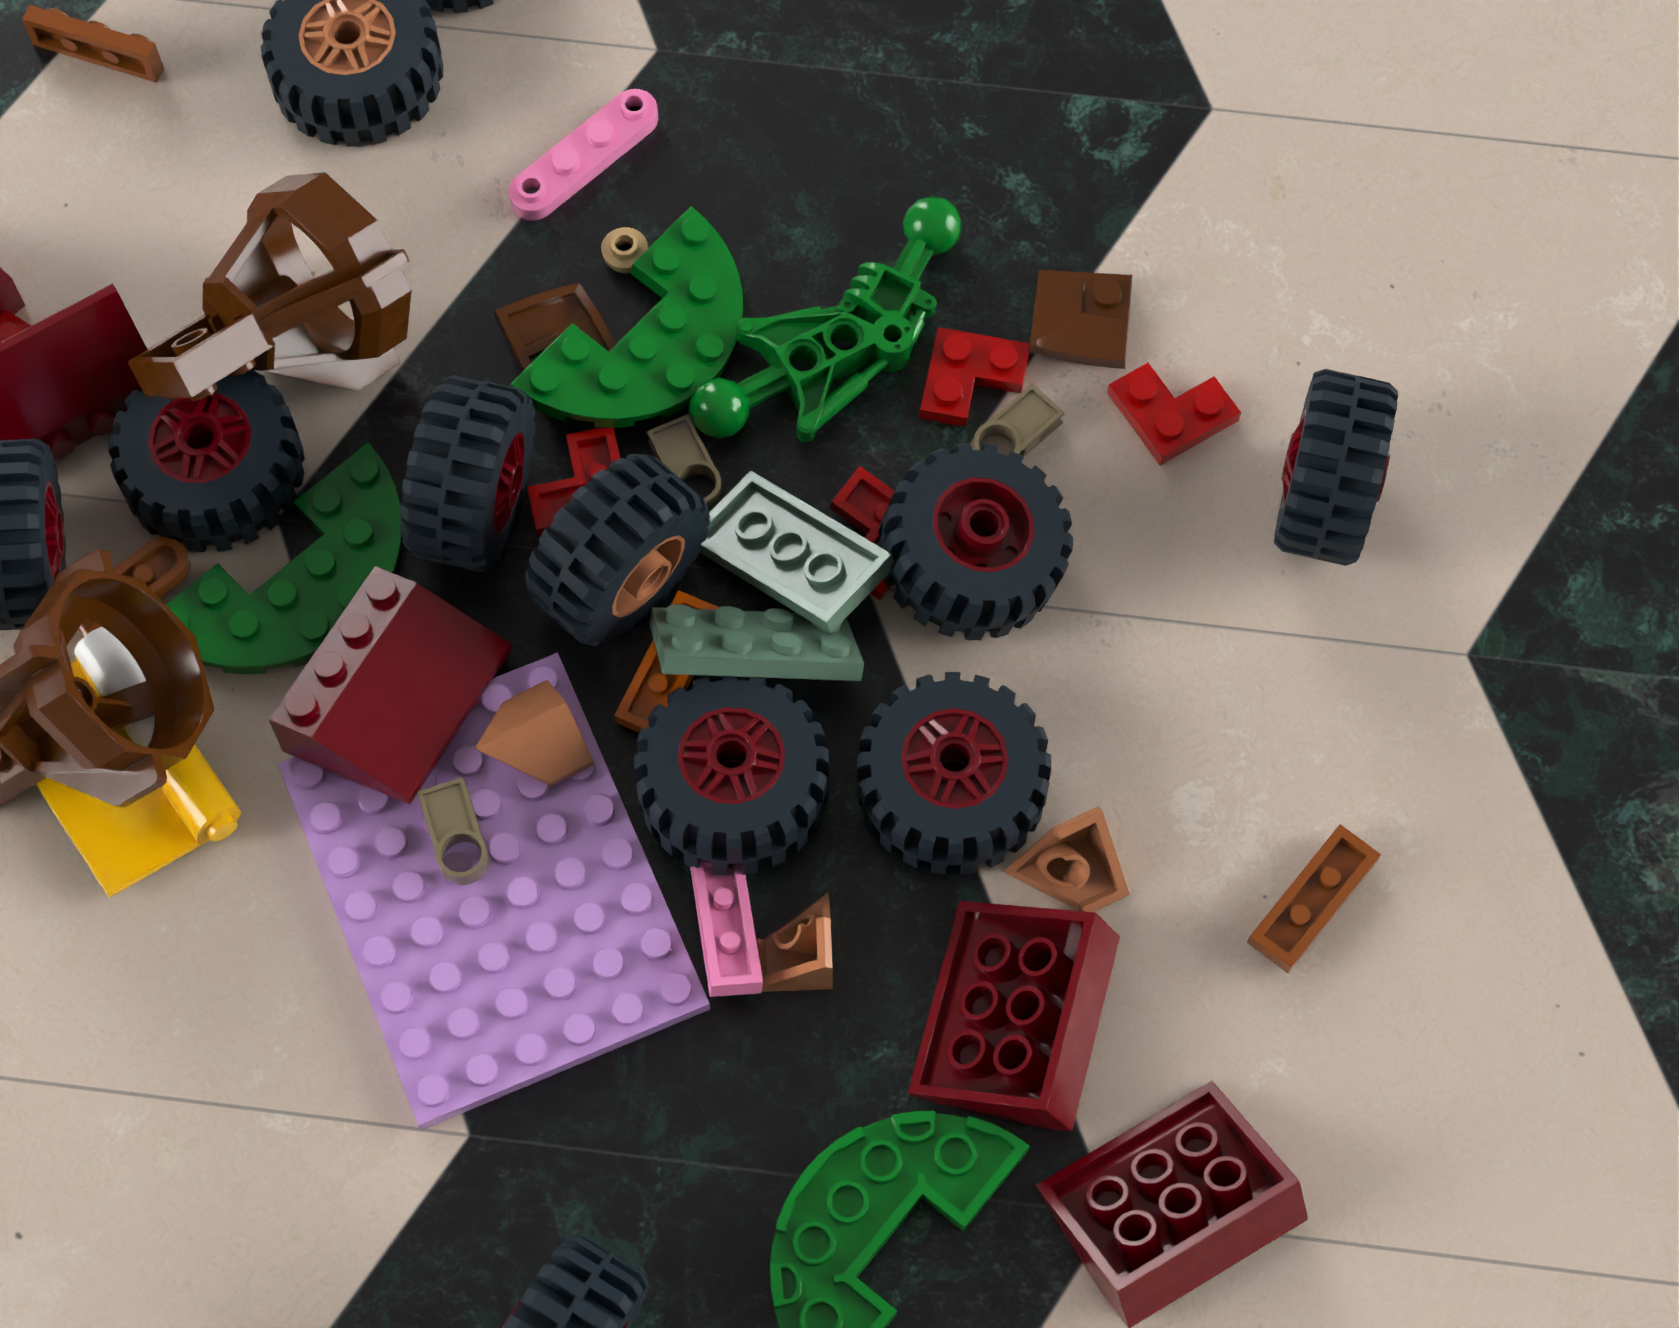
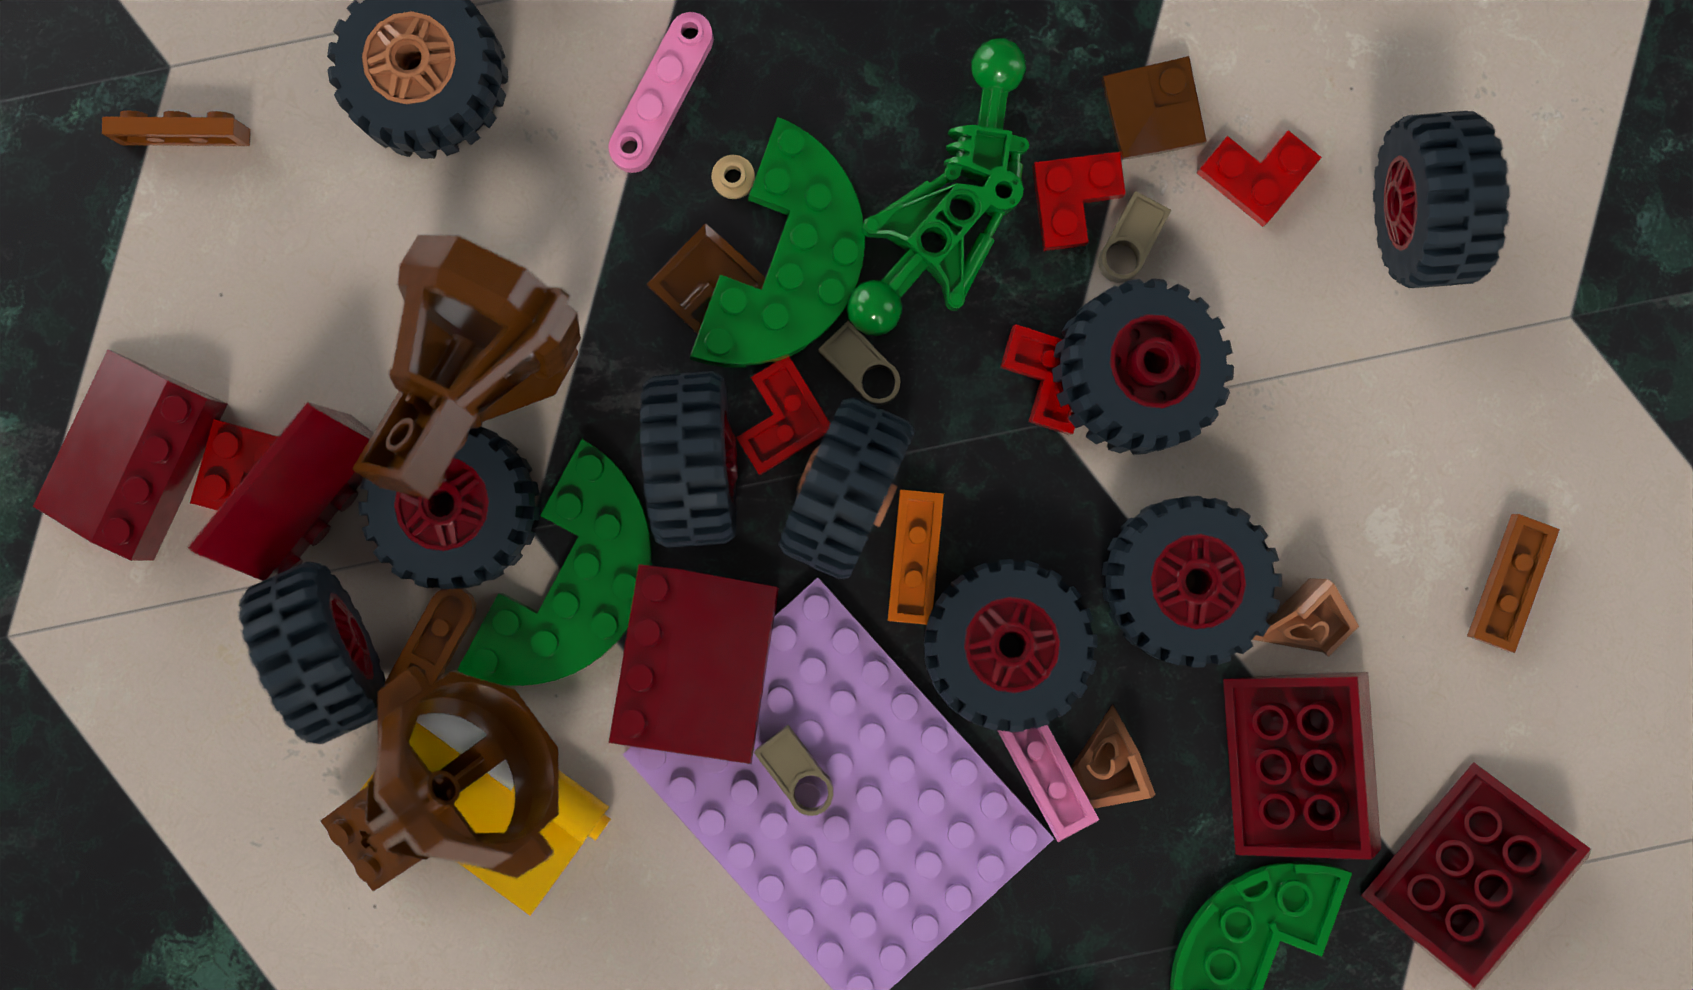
camera: 15 degrees left, 20 degrees up
(537, 736) = (830, 667): nougat slope -> none
(752, 644) = (989, 527): sand green plate -> none
(793, 552) = (989, 426): plate -> none

